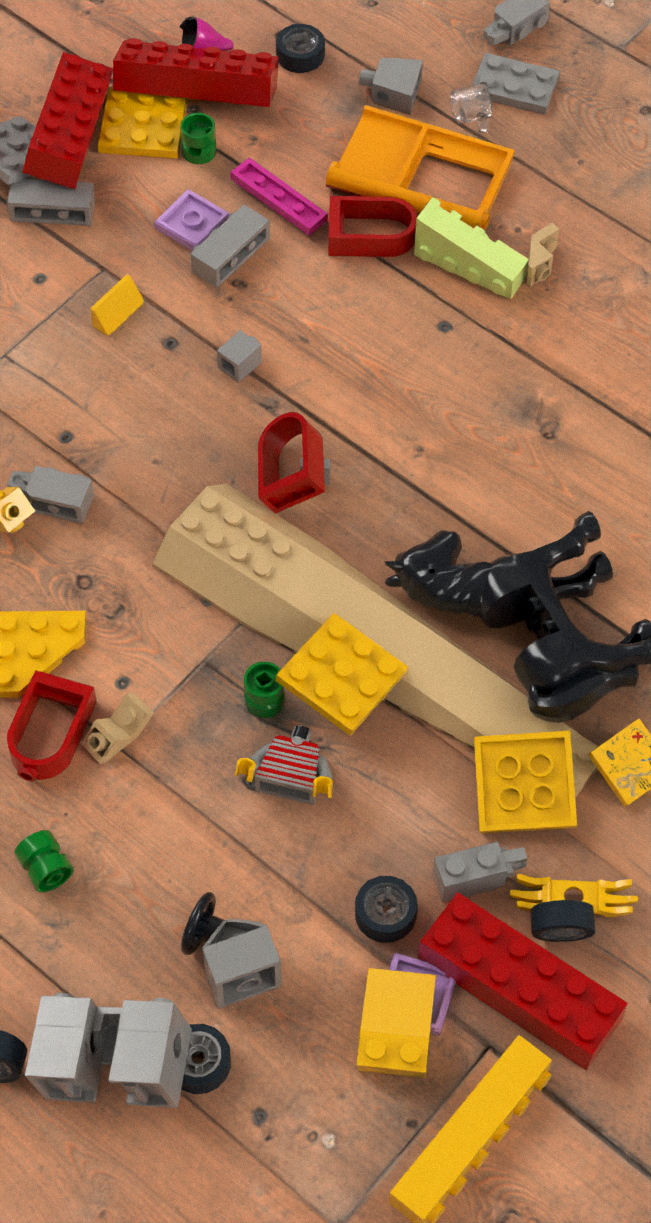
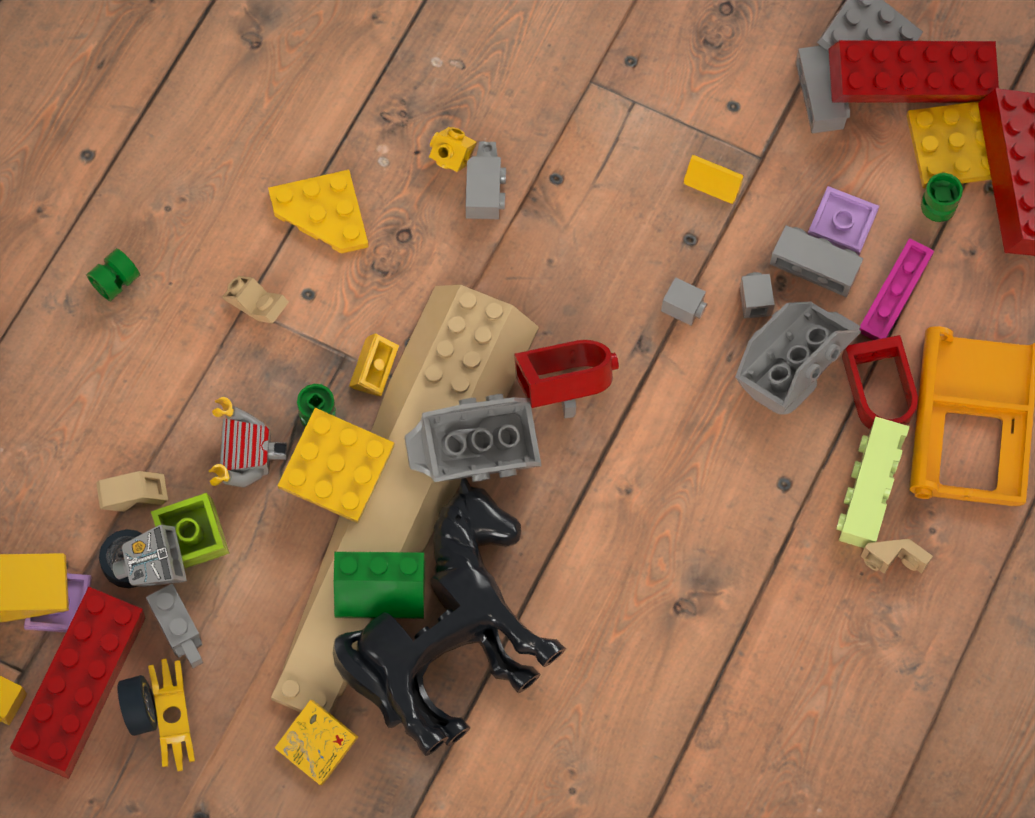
camera: 75 degrees right, 10 degrees up
(60, 691) = (276, 224): red window -> none
(224, 636) = (374, 365): none -> yellow slope
(236, 954) = (54, 443): light grey piece -> none
(251, 298) = (756, 295): none -> light grey brick
(309, 890) = (125, 490): none -> tan slope
(332, 274) = (792, 353): none -> light grey slope
(354, 545) = (475, 440): none -> light grey slope
(376, 834) = (196, 528): none -> lime brick
(407, 867) = (152, 558): none -> light grey torso
(483, 661) = (379, 583): none -> green slope
(525, 782) = (270, 649): yellow plate -> none

